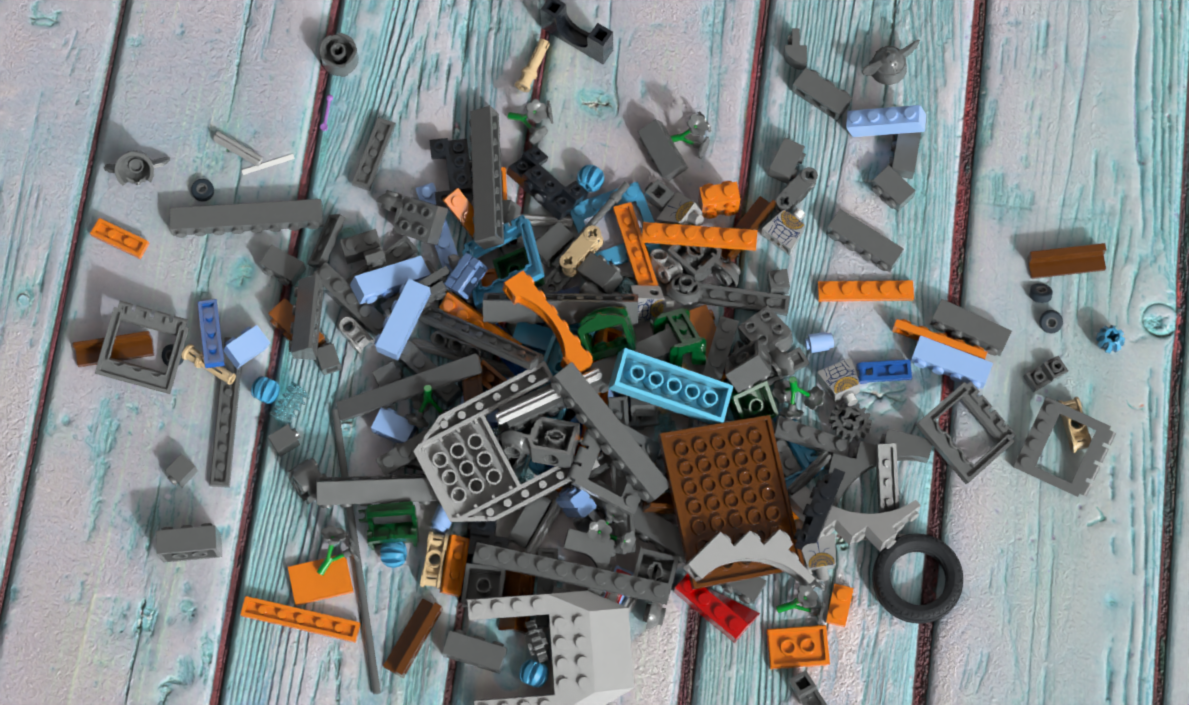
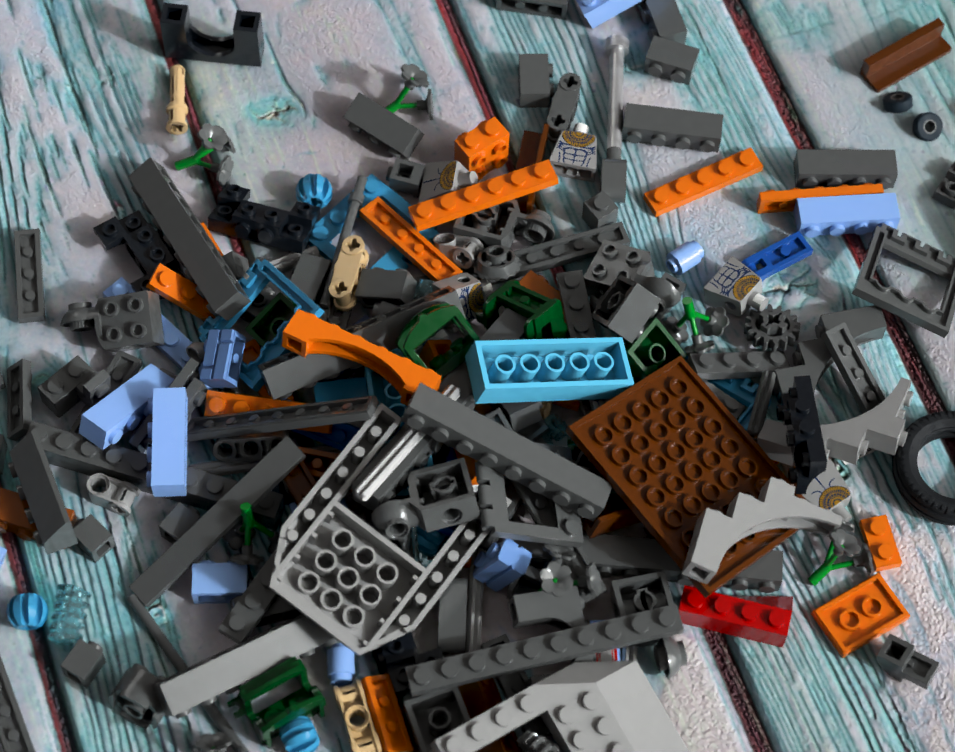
camera: 30 degrees left, 10 degrees down
(806, 252) = (613, 168): none -> flat silver piece

